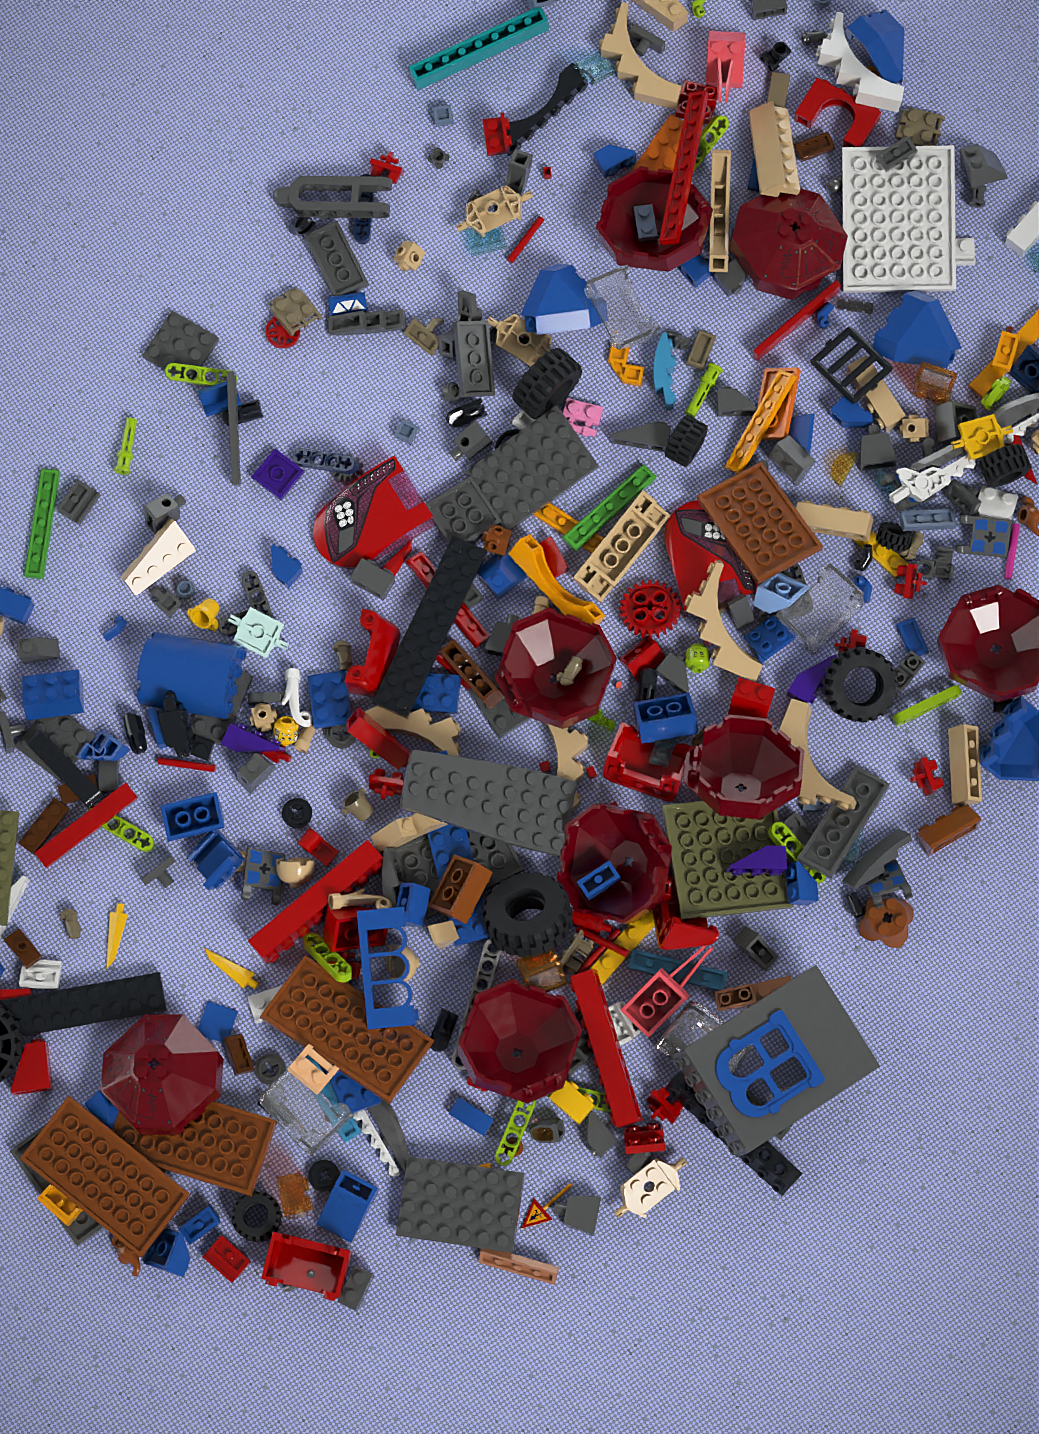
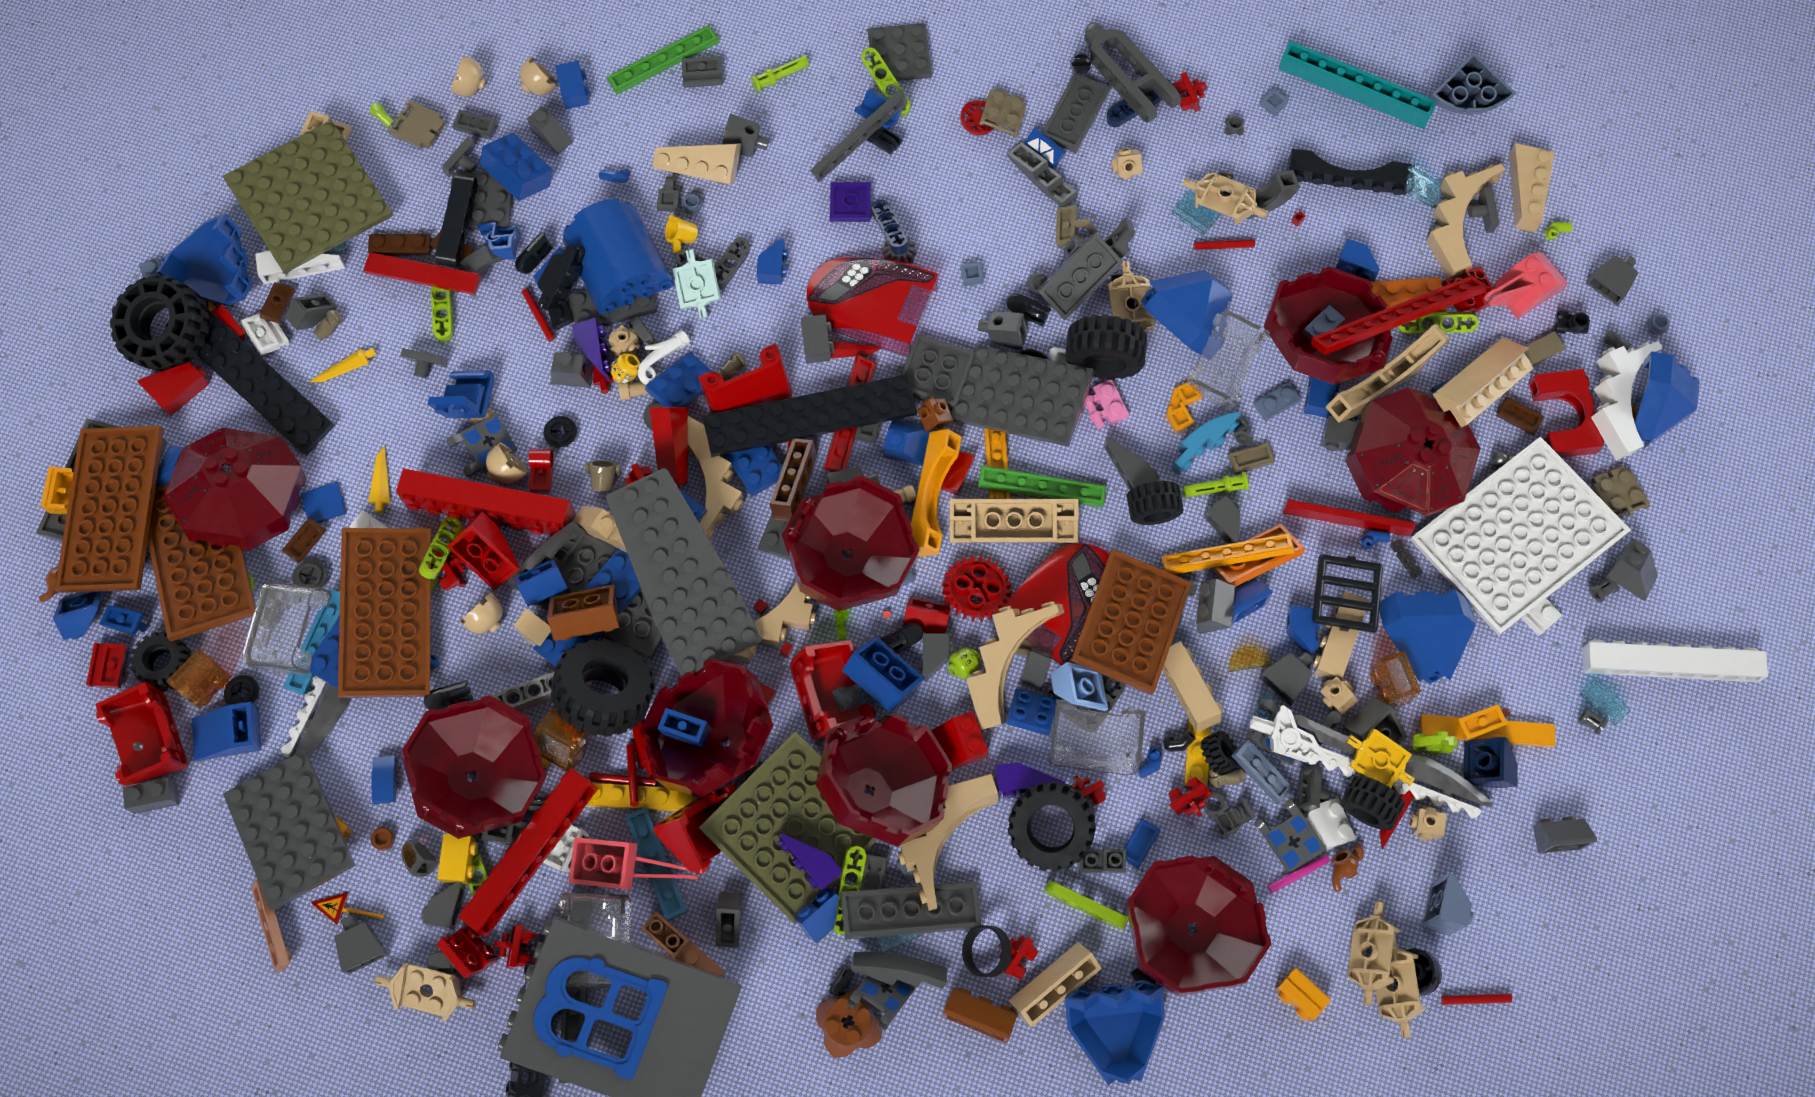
camera: 45 degrees right, 5 degrees down
(50, 929) = (308, 310): none -> dark grey slope
(192, 816) = (489, 349): blue slope -> none
(309, 1073) = (312, 606): light nougat plate -> none
(337, 900) = (511, 533): tan plant -> none
(384, 919) = (417, 636): blue fence -> none
(496, 135) = (1292, 150): red bracket -> none
(518, 1130) = (397, 829): lime beam -> none
(567, 956) = (610, 751): dark tan hinge -> none
(570, 671) = (864, 560): dark tan arm -> none
(673, 299) = (1277, 402): none -> sand blue plate
(896, 153) = (1577, 485): dark grey plate -> none
(896, 805) = (1005, 953): none -> black tyre

